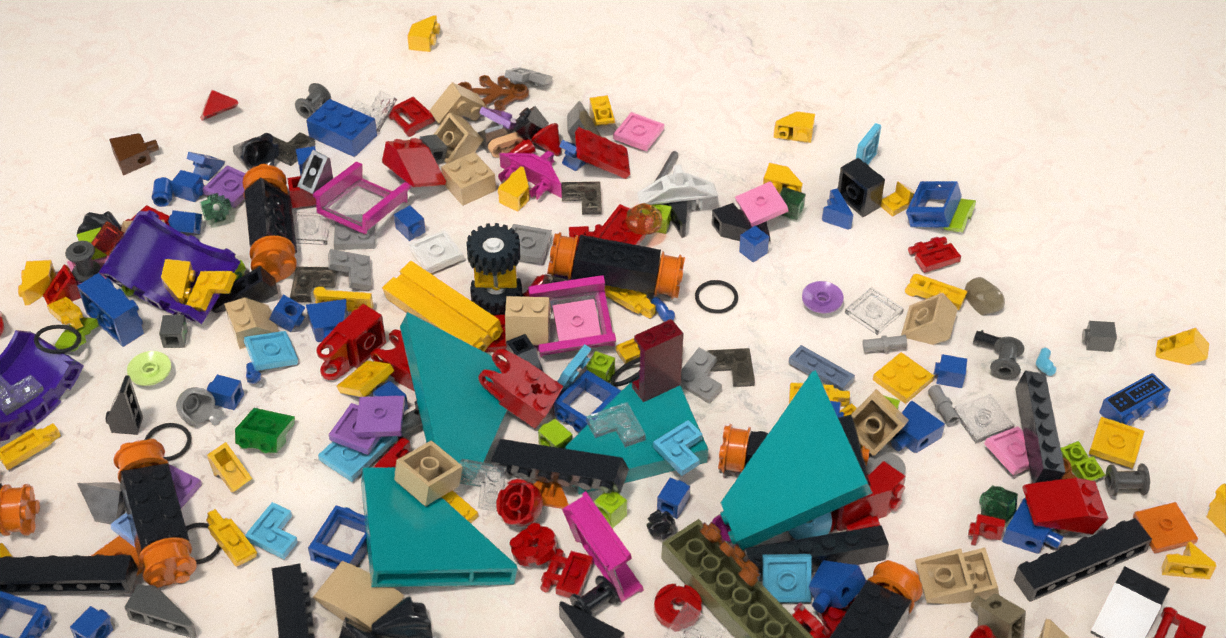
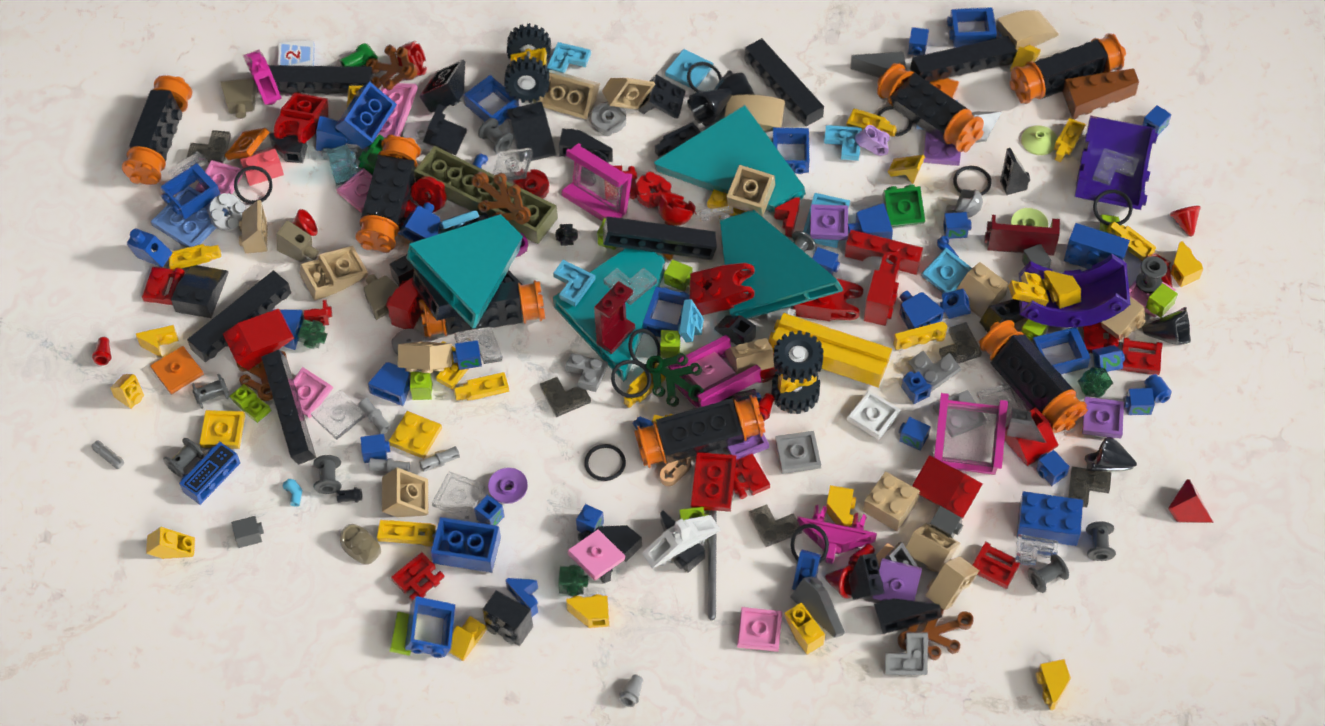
camera: 160 degrees right, 10 degrees up
(56, 464) = (1039, 140): none -> yellowish green dish
(107, 238) = (1143, 290): clear red slope -> none
(132, 152) = (1221, 419): reddish brown torso -> none
(178, 346) = (1021, 237): none -> dark red panel
(205, 164) = (1144, 430): blue slope -> none
(226, 231) = (1077, 346): none -> blue window
(244, 512) = (873, 140): none -> lavender piece
(303, 374) = (864, 245): none -> red arch
(310, 422) = (873, 222): none -> blue torso
(365, 378) = (854, 266): yellow plate -> none
(369, 93) = (1048, 573): none -> dark grey hose
(380, 259) = (916, 387): none -> blue brick
(380, 416) = (816, 226): medium lavender plate -> none
(468, 603) = (676, 139): none -> black hinge
(509, 97) = (901, 613): none -> black slope
(557, 172) = (818, 529): none -> black tyre
(602, 153) = (777, 570): red plate -> none
(625, 341) = (673, 377): none -> dark green plant
(642, 223) = (699, 503): clear orange piece -> none
(673, 497) = (566, 253): blue brick -> none
(768, 122) = (631, 692): none -> light grey cone
(795, 127) = (599, 693): yellow slope -> none
(827, 371) = (487, 414): sand blue plate -> none
(849, 274) = (489, 511): none -> blue brick
(868, 146) = (515, 673): medium azure plate -> none
(881, 255) = (466, 544): none -> blue brick
(903, 527) = (377, 294): none -> dark tan torso
(935, 351) = (387, 465): none -> light grey pin
(1157, 426) = (183, 457): none -> dark grey hose

